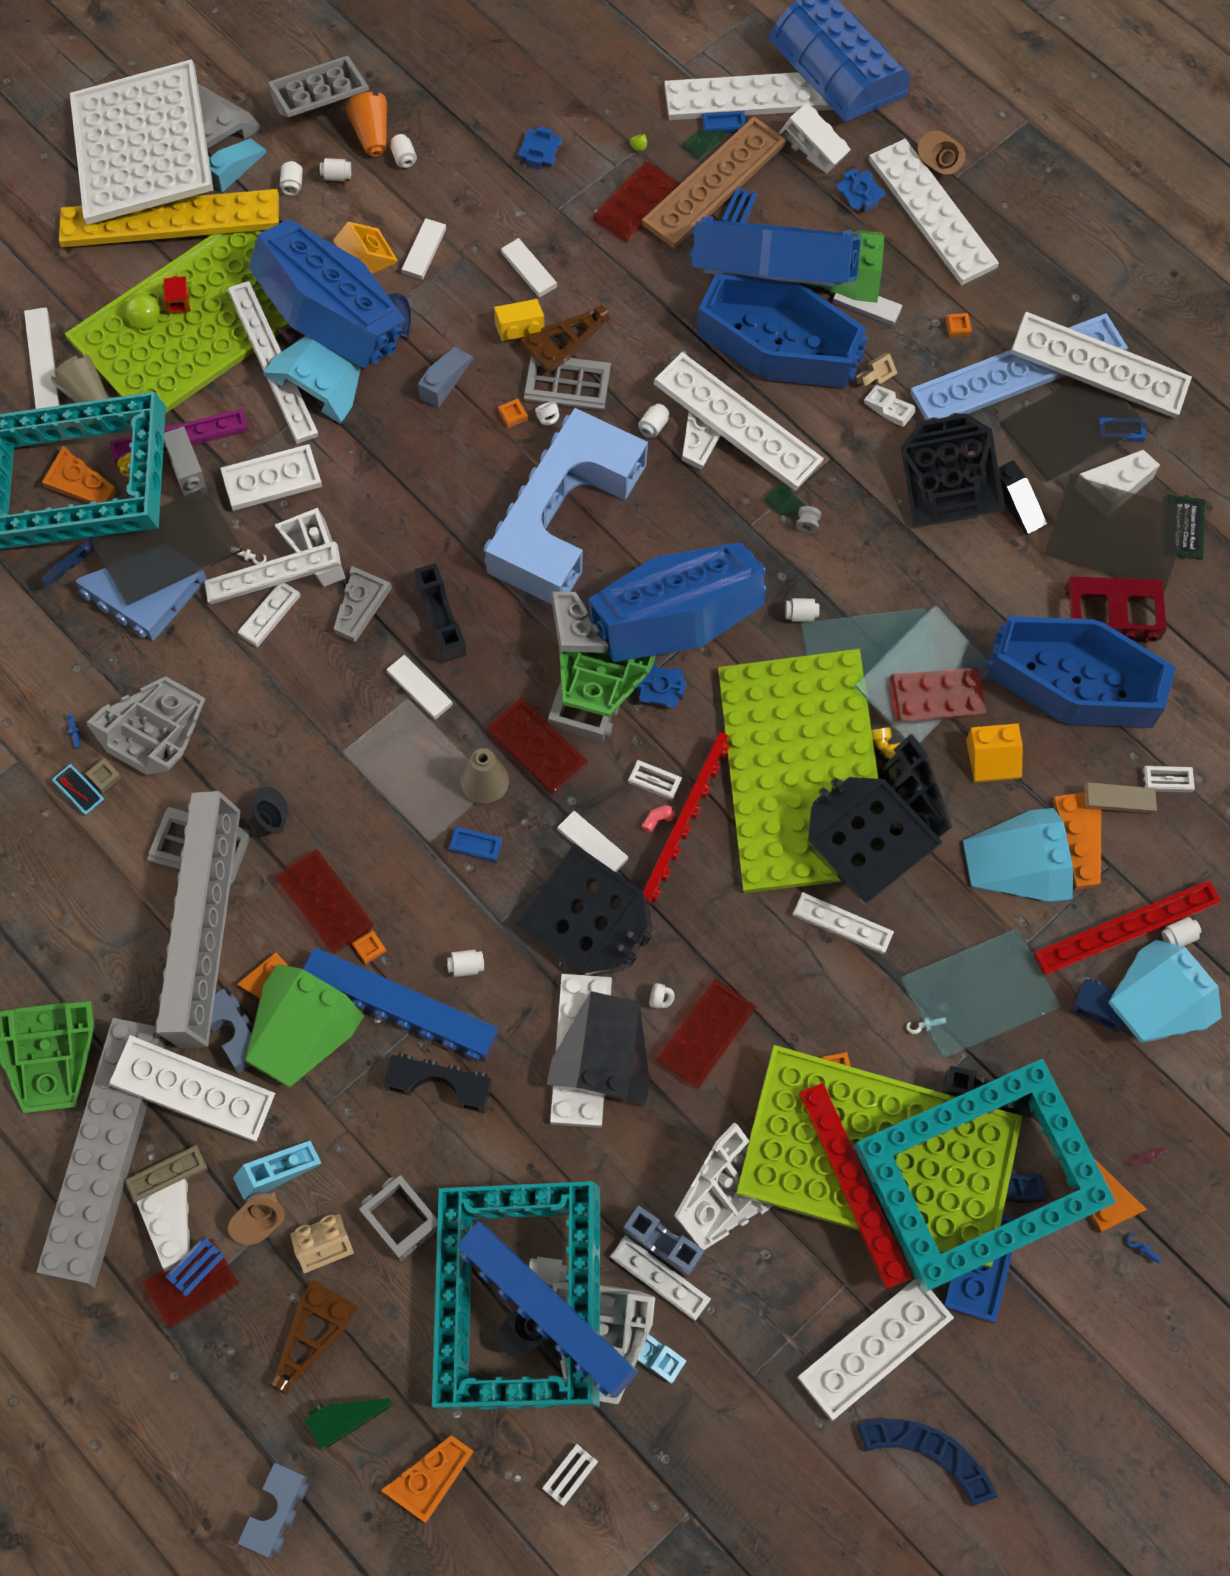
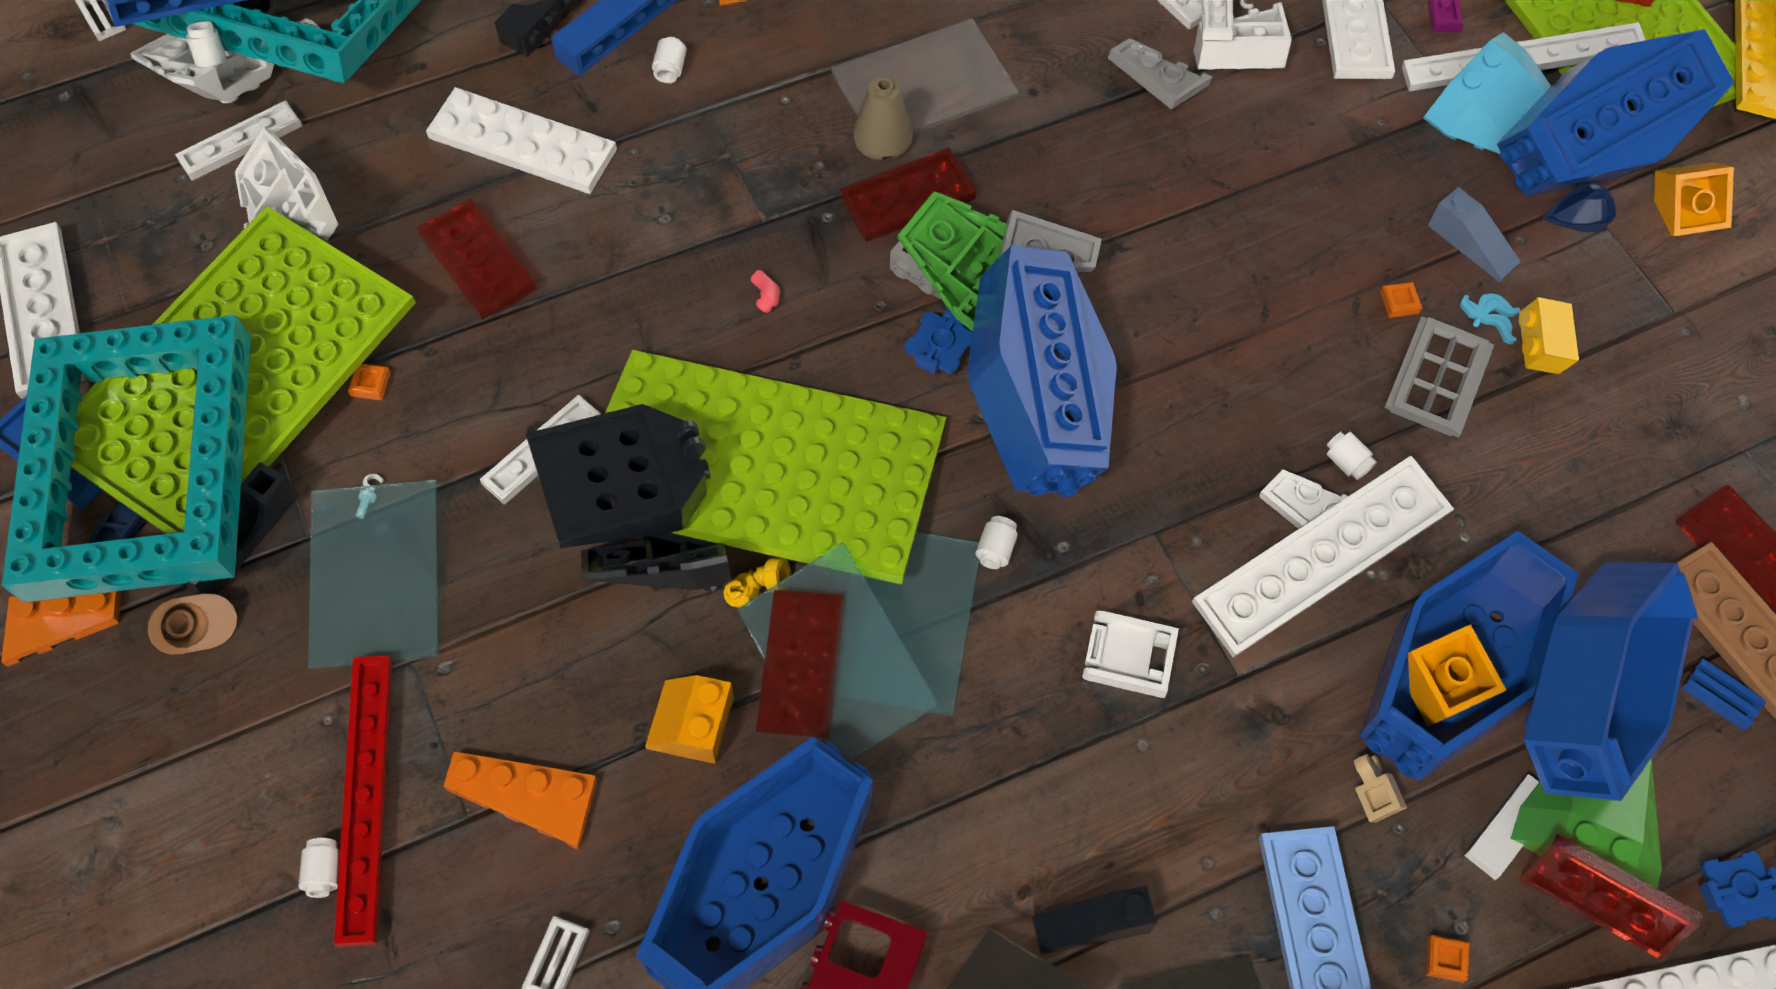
camera: 110 degrees right, 5 degrees down
(419, 687) = (1029, 105): white tile -> none
(423, 249) = (1690, 268): white tile -> none
(439, 612) = (1151, 139): black arch -> none
(475, 844) = (808, 109): blue tile -> none
(498, 364) = (1481, 313): none -> medium azure piece
(528, 267) = (1642, 381): white tile -> none
(545, 410) = (1394, 332): white tile -> none
(548, 354) = (1506, 350): reddish brown plate -> none
(555, 903) = (662, 175): black hinge -> none
(580, 454) = (1193, 241): light blue arch -> none
(592, 841) = (761, 218): white tile -> none
(604, 1051) = (496, 146): black wedge -> none
(612, 1309) = (205, 45): none -> white brick
(652, 788) = (831, 307): white tile -> none
(654, 1237) = (287, 122): sand blue arch -> none
(657, 996) = (543, 223): white tile -> none
(660, 1359) = (156, 117): medium azure slope -> none
(691, 810) = (756, 320): red plate -> none
(783, 501) = (1179, 586): clear green tile -> none
(807, 331) = (1451, 675): none -> light orange slope
(808, 519) = (1138, 599): light grey wheel -> none
(843, 524) = (1123, 650): none -> white container
(854, 1186) = (258, 318): red plate -> none
(887, 405) = (1312, 790): white slope -> none
(898, 247) = (1610, 897): none -> clear red plate
(967, 498) = (1214, 840): black hinge -> none
(1023, 857) = (531, 698): medium azure wedge -> none
(1075, 1094) = (191, 623): none -> medium nougat piece
(1093, 1005) = (278, 712): dark blue brick -> none
(1120, 798) = (551, 866): dark tan tile -> none
(1147, 1157) = (62, 695): clear pink hand -> none
(1166, 994) = (242, 791): medium azure wedge -> none

